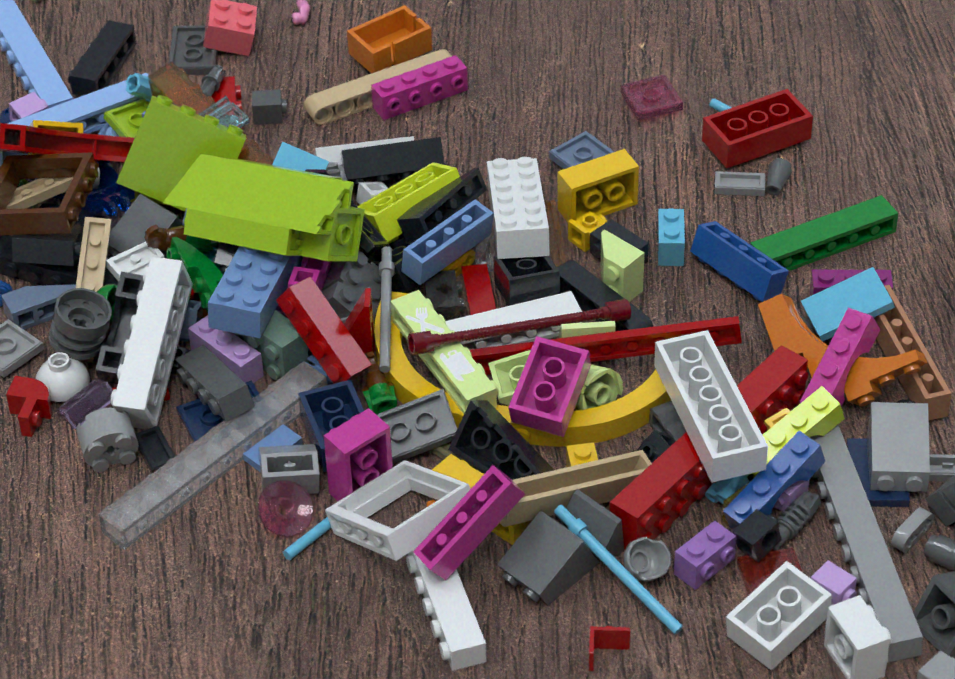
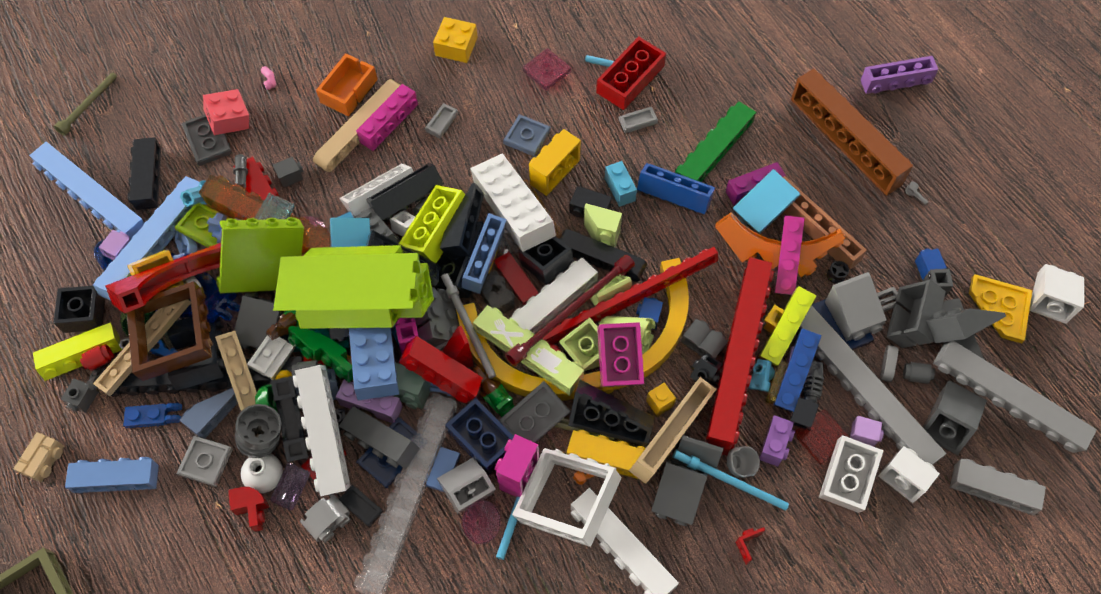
camera: 25 degrees left, 20 degrees up
(469, 523) = (629, 507): dark pink brick -> none
(486, 113) = (441, 120): none -> light grey tile
(552, 34) = (455, 39): none -> yellow brick
(580, 229) = (562, 197): yellow brick -> none
(632, 373) = (651, 309): none -> blue brick
(710, 406) = (739, 334): white brick -> none
(778, 173) = (660, 104): dark grey cone -> none

